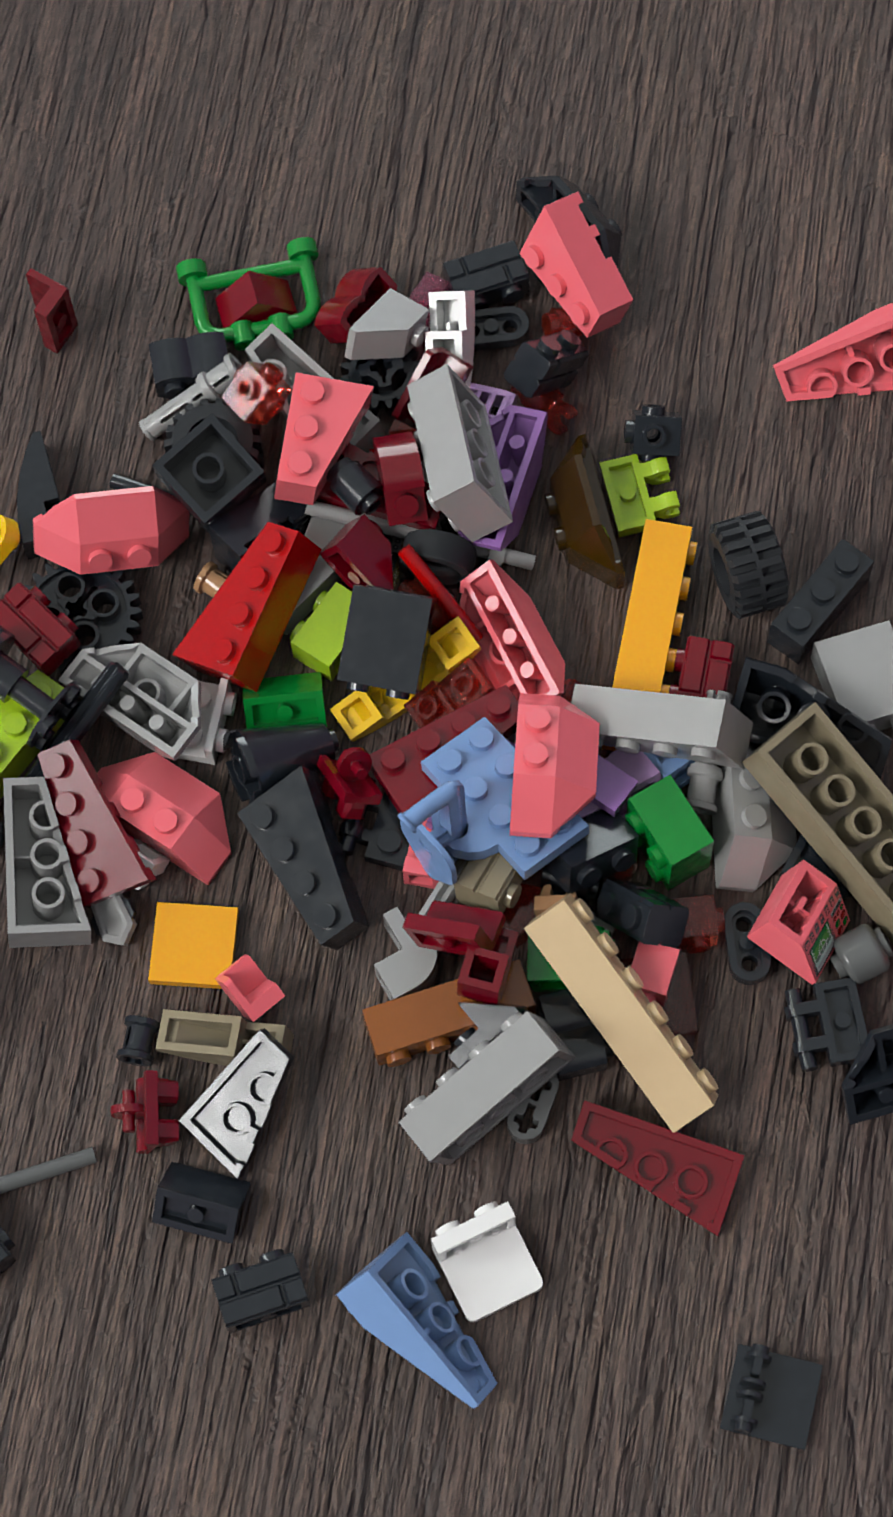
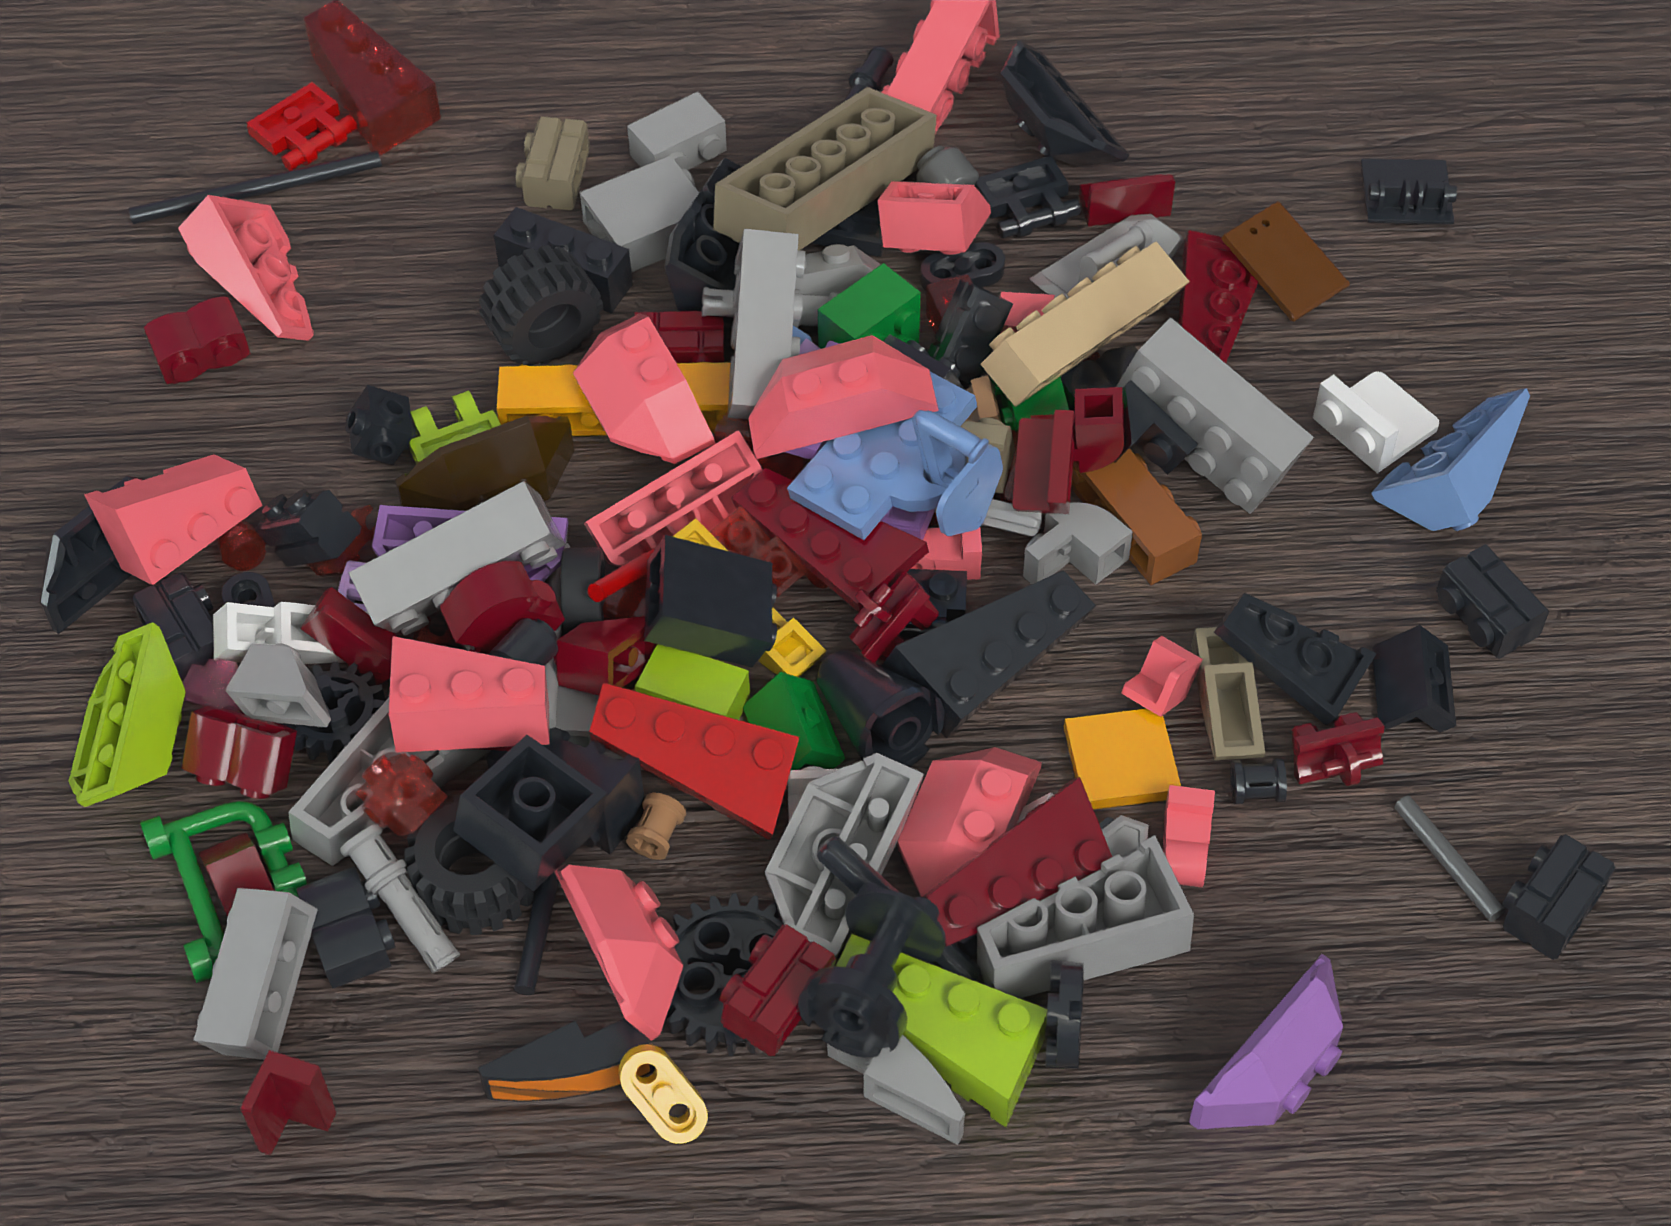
camera: 105 degrees left, 15 degrees down
(101, 969) = (1188, 832): none -> coral leg
(155, 298) = (255, 973): none -> light grey brick
(394, 234) = (129, 719): none -> lime wedge
(630, 626) = (642, 393): none -> coral wedge
(694, 1240) = (1285, 261): none -> reddish brown container
(745, 1099) = (1106, 247): none -> light grey piece
(787, 307) = (197, 340): none -> dark red brick
(813, 1118) = (1117, 199): none -> dark red panel

